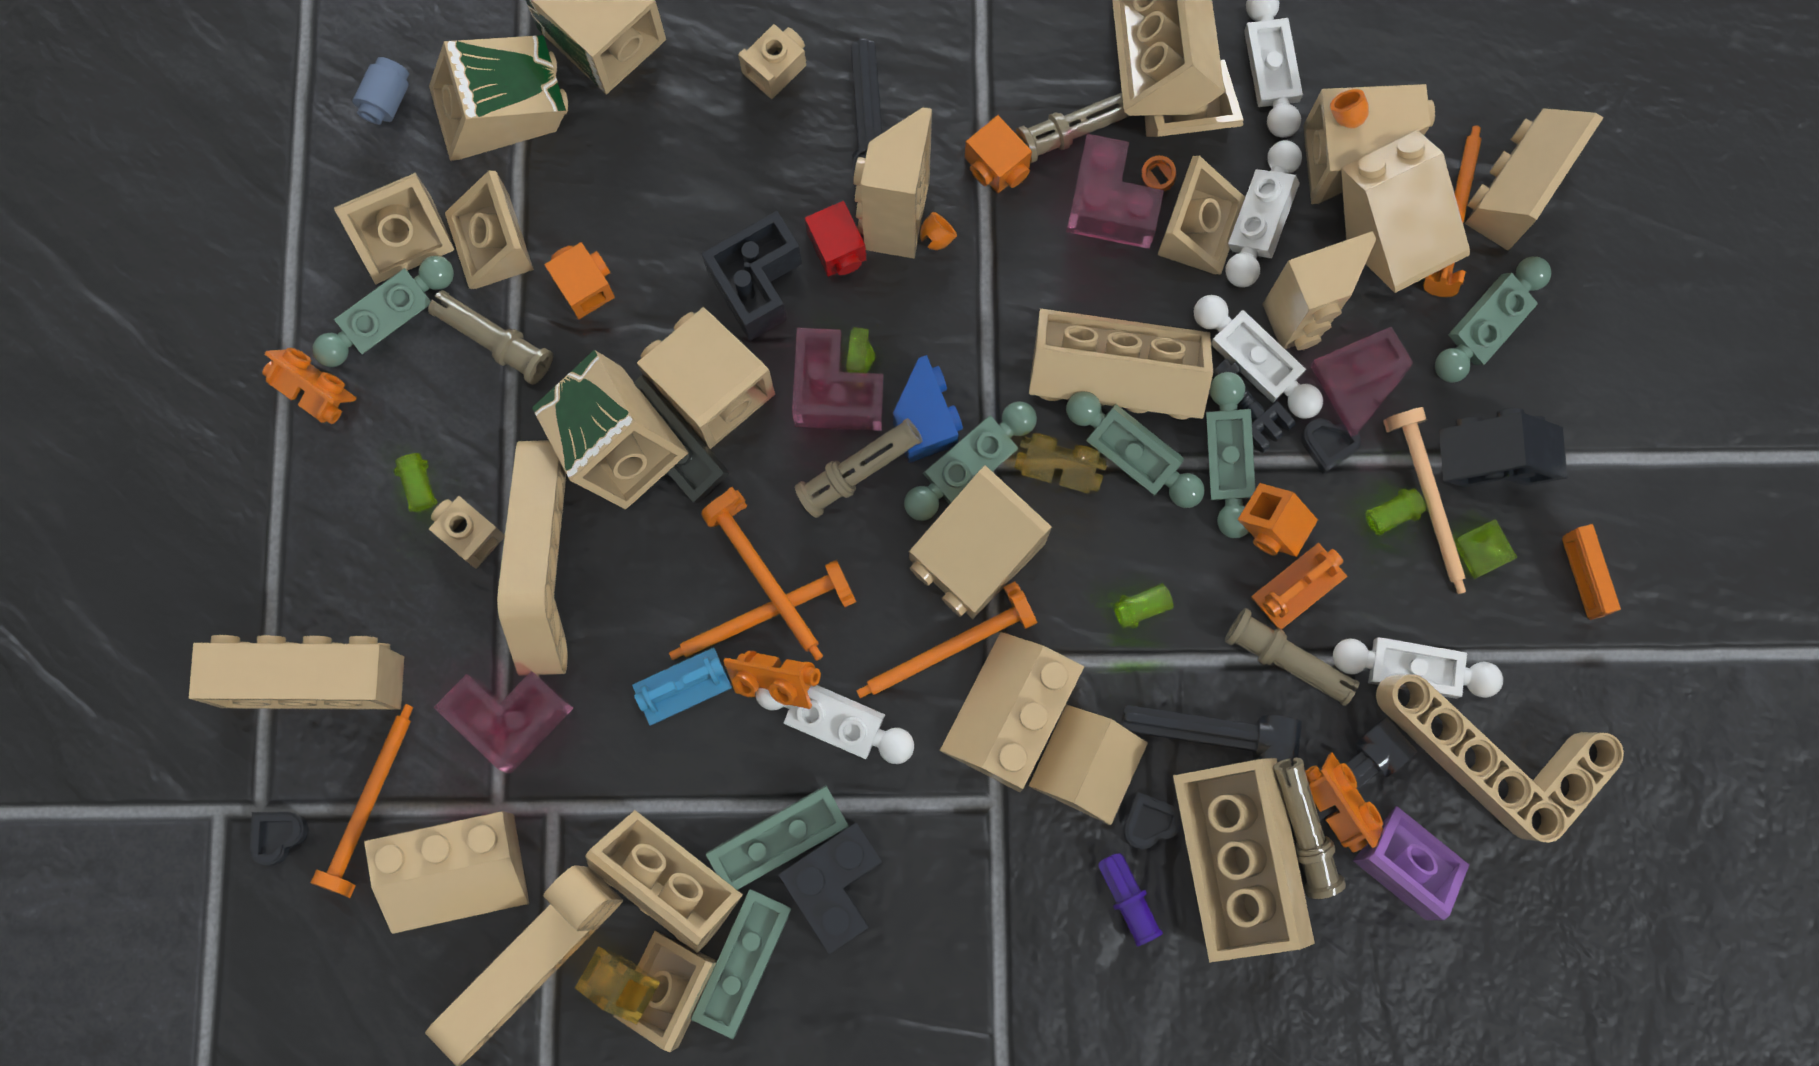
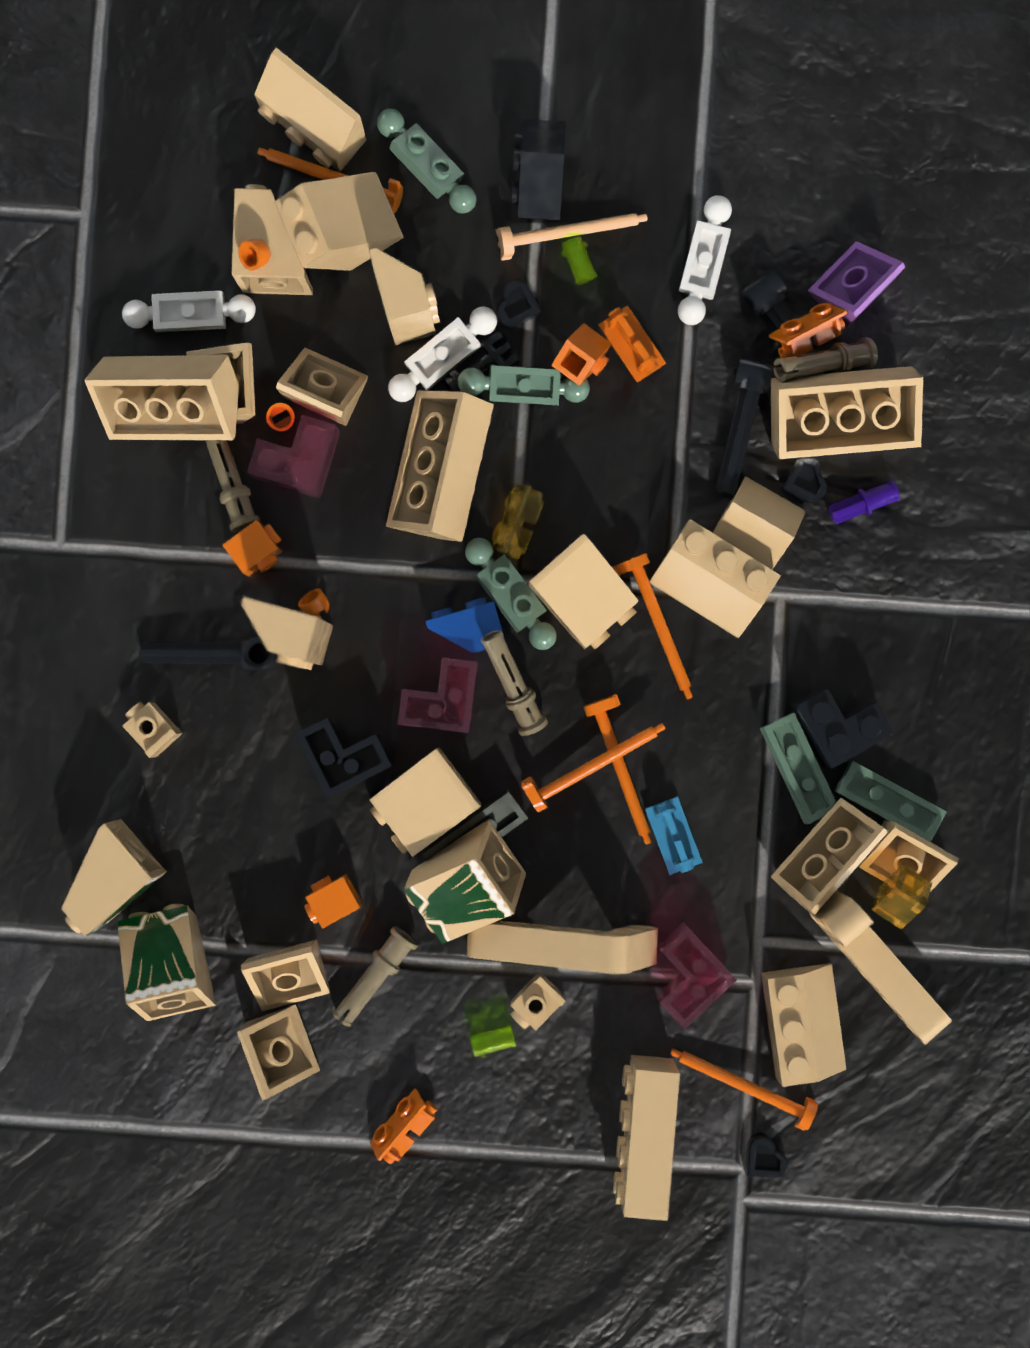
camera: 90 degrees left, 10 degrees up
(381, 91) = (152, 1060): sand blue brick -> none
(383, 311) = (346, 1063): sand green plate -> none
(785, 684) = (671, 776): orange hinge -> none
(836, 239) = (316, 687): red brick -> none
(844, 724) = (709, 717): white plate -> none
(860, 352) = (417, 675): clear neon green tile -> none
(1135, 449) = (513, 461): sand green plate -> none
(1143, 605) = (638, 468): clear neon green pin -> none
(1263, 213) = (321, 334): white plate -> none
(1274, 648) = (680, 370): dark tan pin -> none
(1362, 376) = (466, 272): clear pink wing -> none
(1485, 549) = (613, 194): clear neon green tile -> none
(1493, 765) = (790, 214): tan beam -> none
(1590, 572) = (641, 114): orange tile -> none

